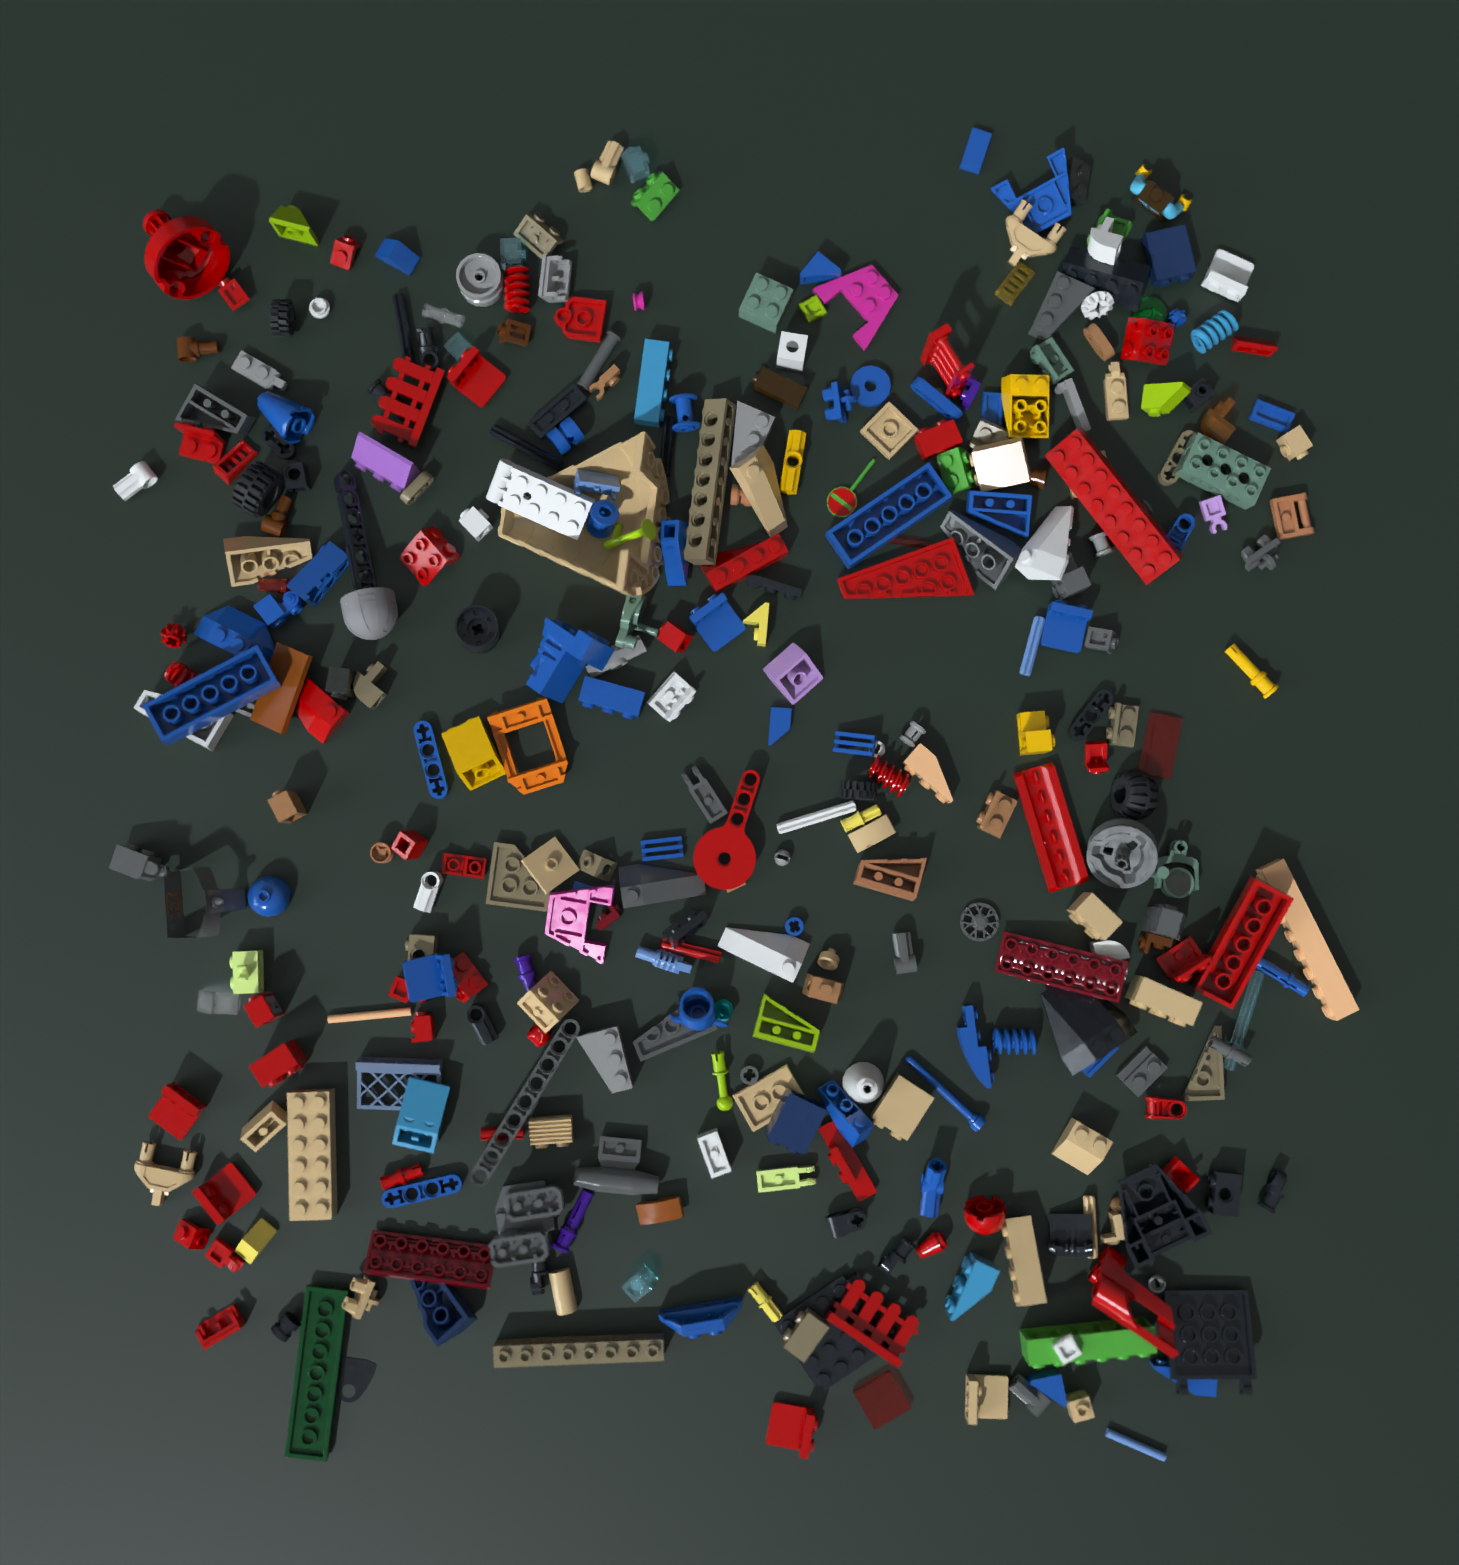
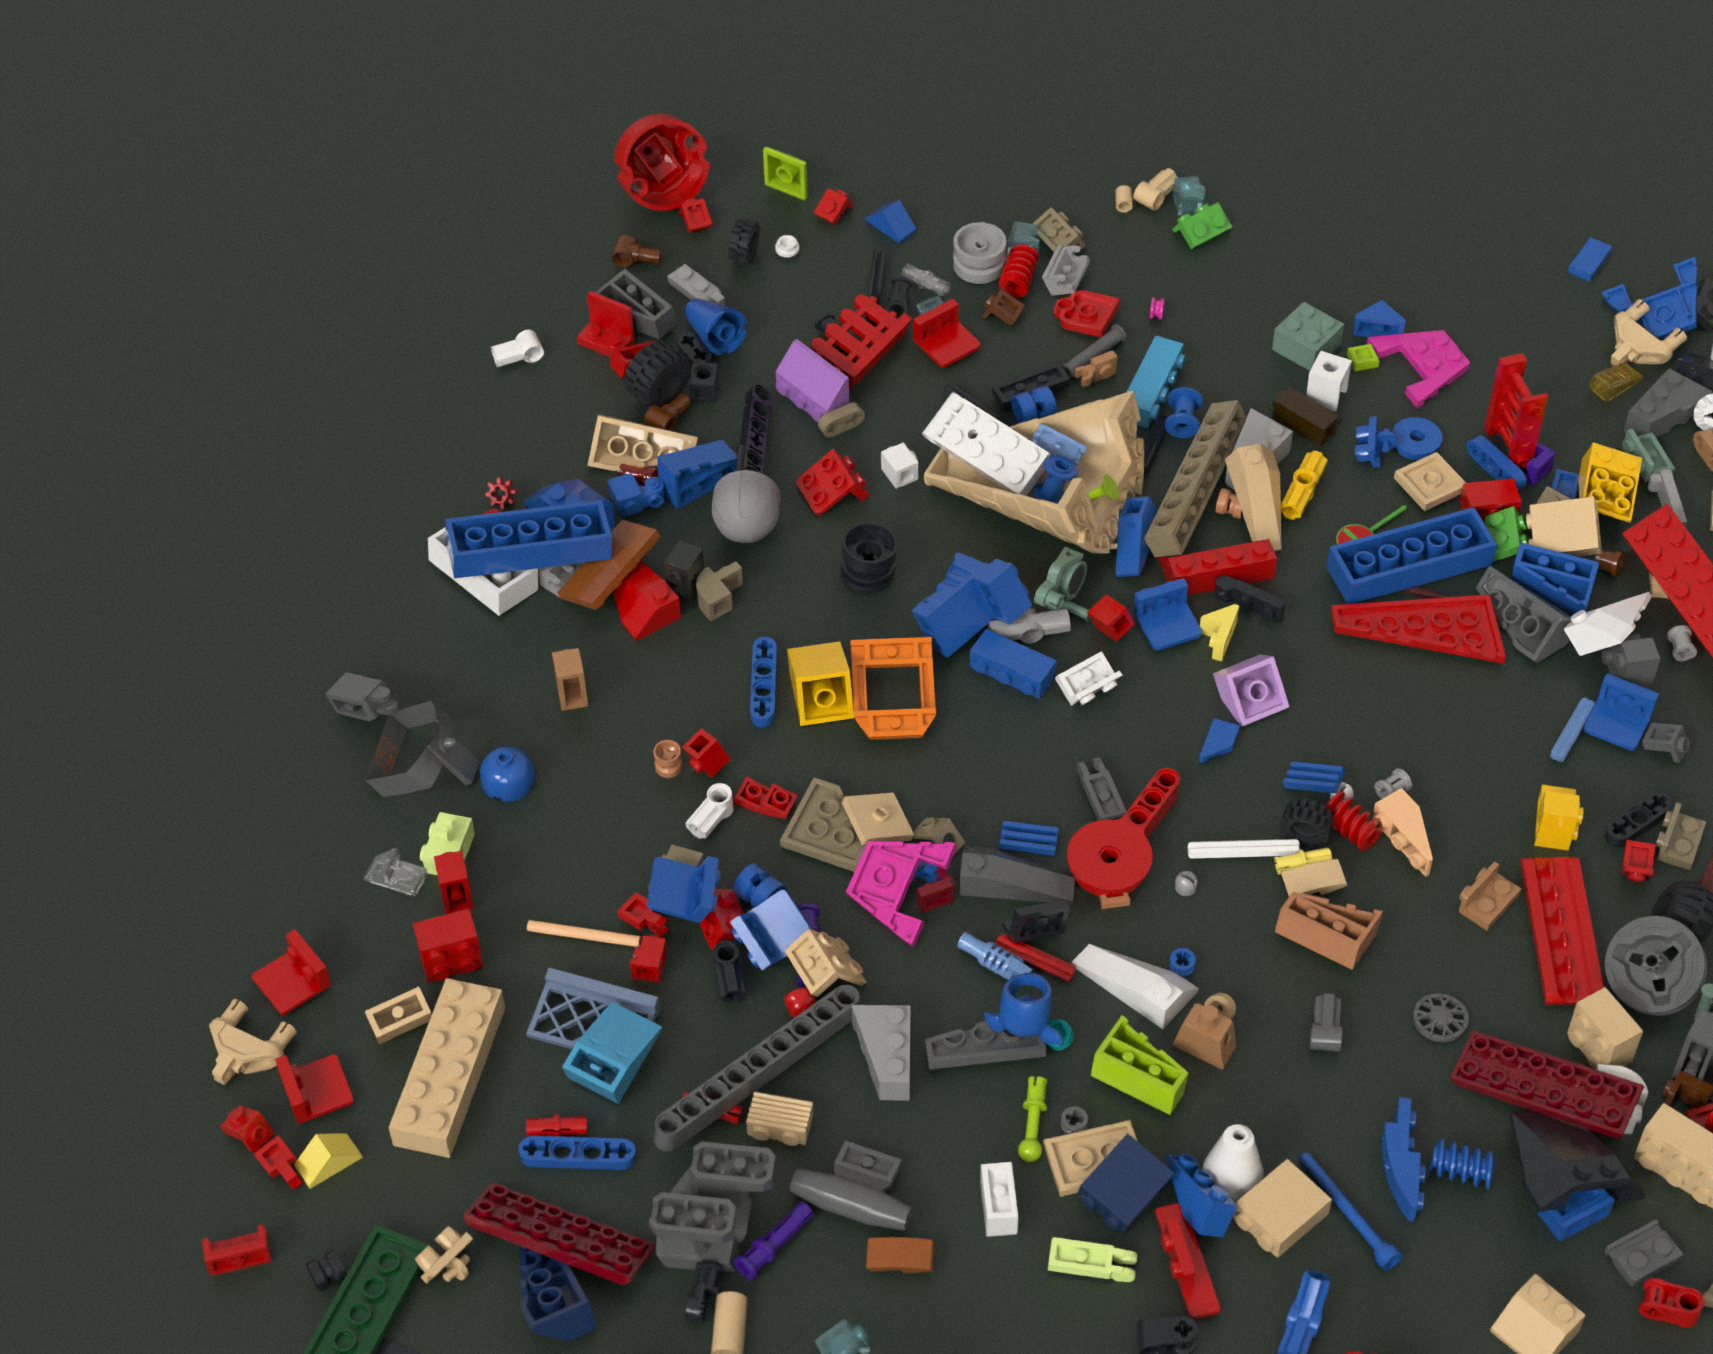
camera: 20 degrees right, 35 degrees down
(490, 953) = (756, 885): none -> blue wheel
(501, 989) = (770, 929): none -> bracket

